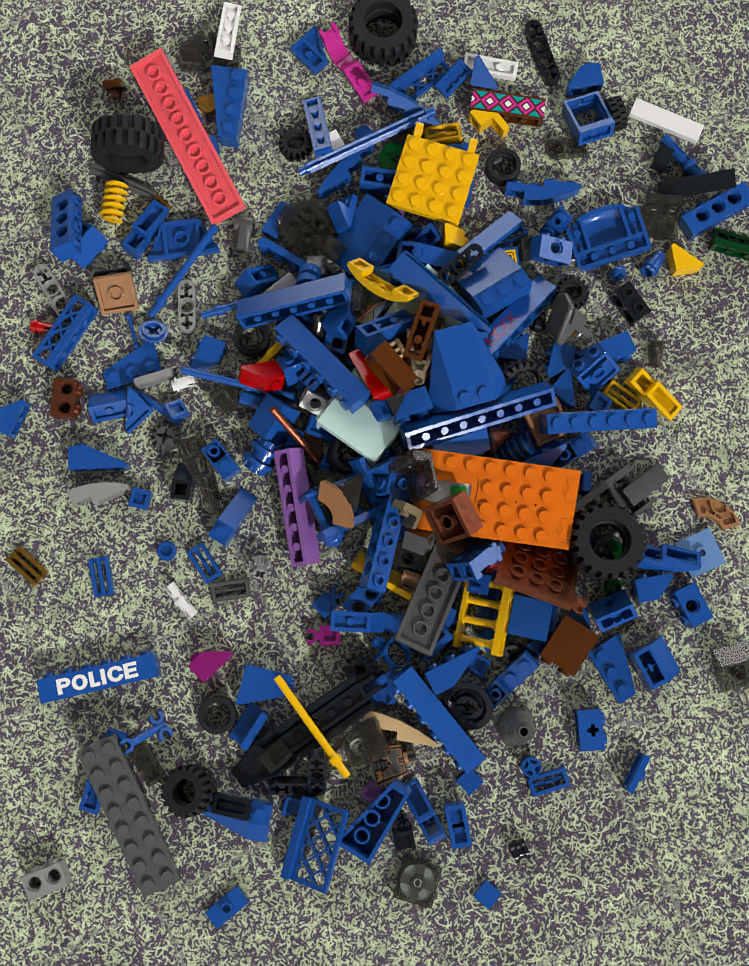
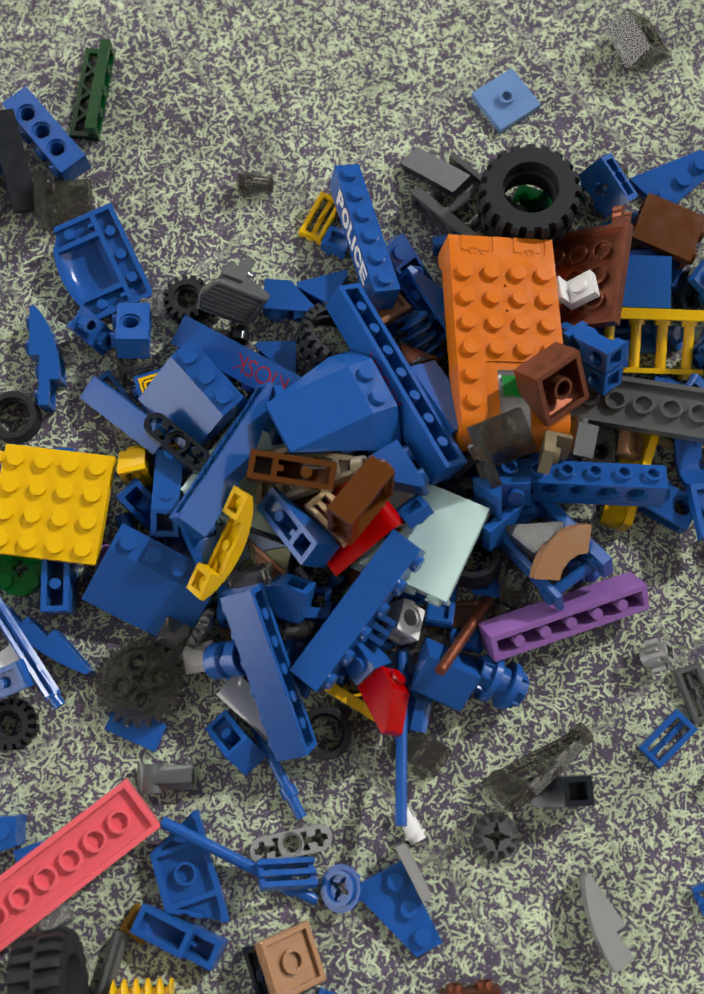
camera: 95 degrees left, 5 degrees down
(86, 458) = (555, 945): blue slope -> none
(107, 405) = (466, 936): blue panel -> none
(129, 317) = (323, 933): blue hinge -> none
(136, 410) = (468, 889): blue tile -> none
(140, 498) = (597, 854): blue plate -> none
(154, 404) = (453, 857): blue bar -> none
(166, 551) = (663, 798): blue tile -> none
(173, 315) = (279, 864): none -> blue tile
(176, 410) = (454, 827): blue tile -> none
(209, 353) = (360, 792): blue slope -> none
(221, 460) = (518, 740): blue slope -> none
(232, 517) = (596, 709): blue slope -> none
(280, 254) = (190, 712): blue plate -> none
(327, 602) = (680, 554): blue plate -> none
(343, 212) = (114, 629): blue slope -> none
(527, 560) = (577, 290): none -> white bracket
(594, 368) = (291, 251): blue plate -> none
(617, 273) = (151, 244): blue plate -> none
(618, 347) = (256, 233): blue slope -> none
(630, 304) = (192, 222): black brick -> none
(650, 588) = (566, 142): blue slope -> none
(652, 265) = (131, 203): blue cone -> none
(653, 393) = (308, 180): yellow slope -> none
(654, 663) = (660, 132): blue slope -> none
(670, 559) = (524, 119): blue slope -> none
(681, 261) = (122, 168): yellow slope -> none
(700, 612) = (582, 89): blue brick -> none
(715, 510) = (448, 88): medium nougat tile -> none

